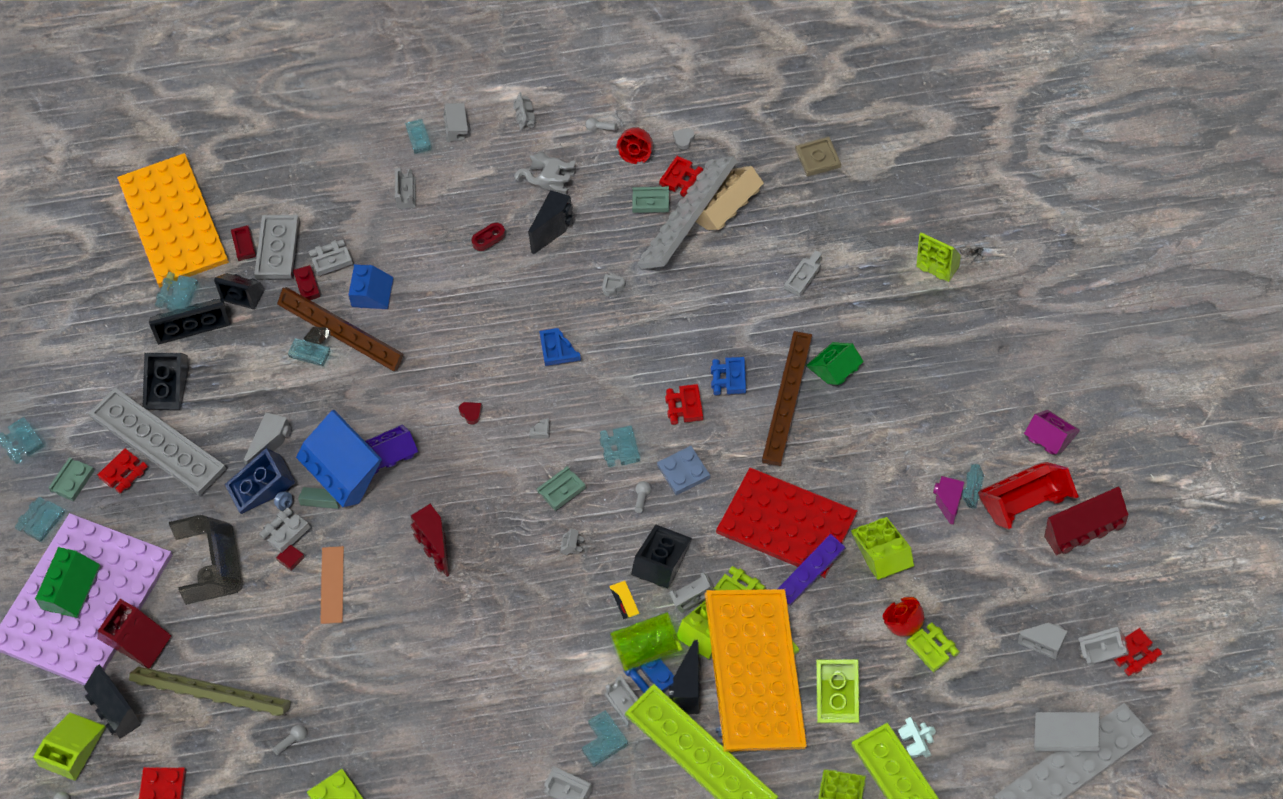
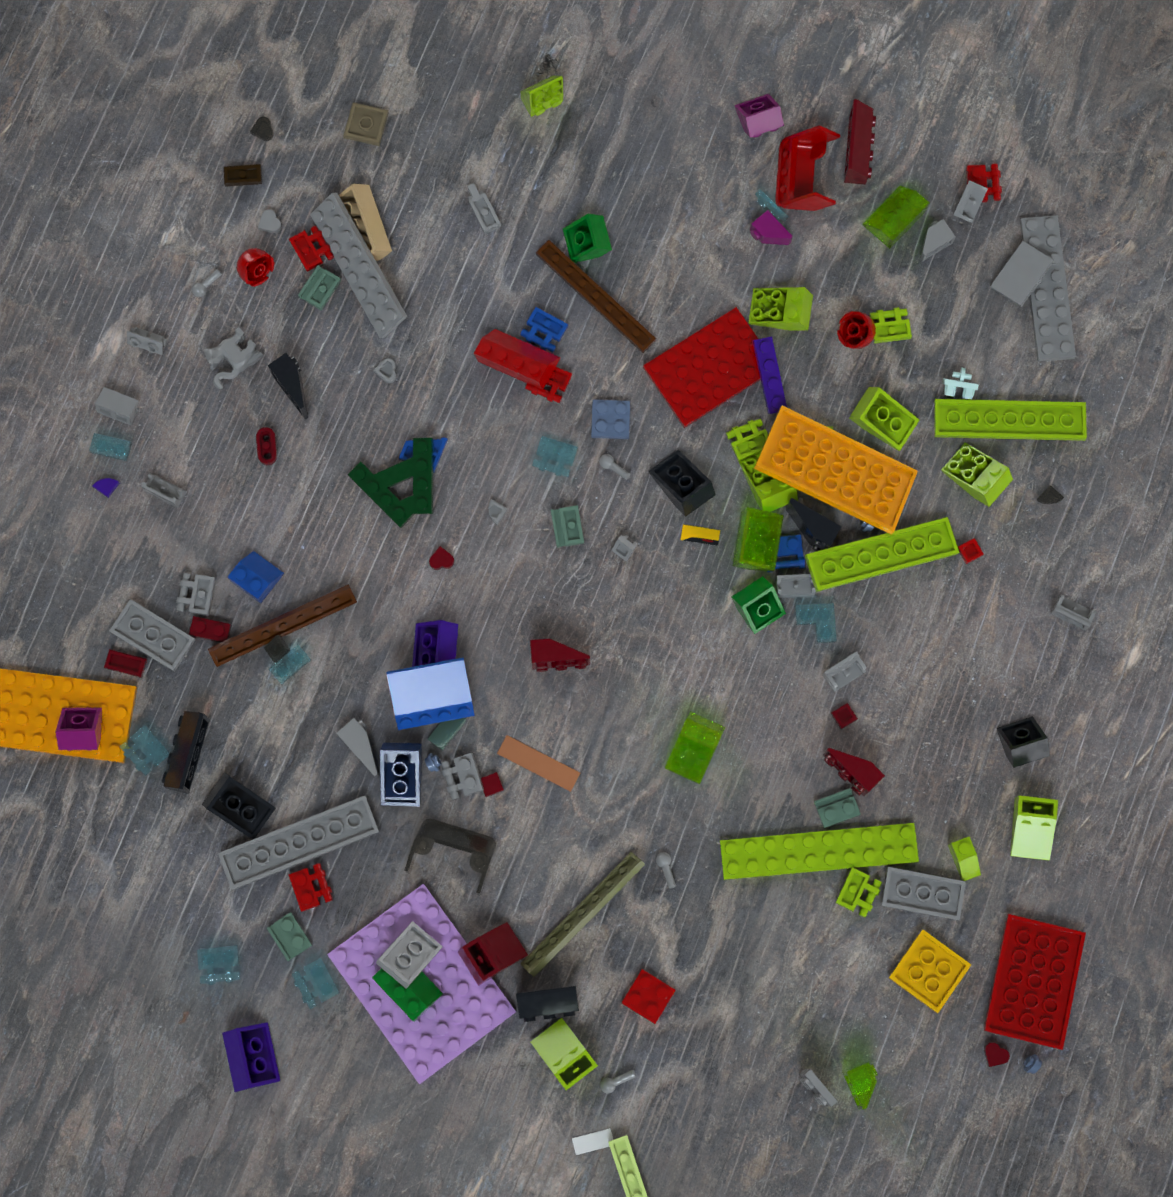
camera: 65 degrees left, 20 degrees up
(94, 565) = (409, 954): none -> light grey plate
(165, 235) = (79, 729): none -> magenta slope
(239, 290) = (182, 691): black slope -> none
(384, 152) = (106, 486): none -> dark purple tile
(419, 699) = (694, 747): none -> clear neon green slope
(536, 346) = (378, 484): none -> dark green plate
(585, 679) = (758, 604): none -> green slope
(687, 366) = (516, 358): none -> red slope
(692, 593) = (732, 477): light grey hinge -> none
(709, 98) = (242, 175): none -> dark brown plate
(760, 91) = (262, 129): none -> clear smoke tile
(1043, 595) = (896, 215): none -> clear neon green slope

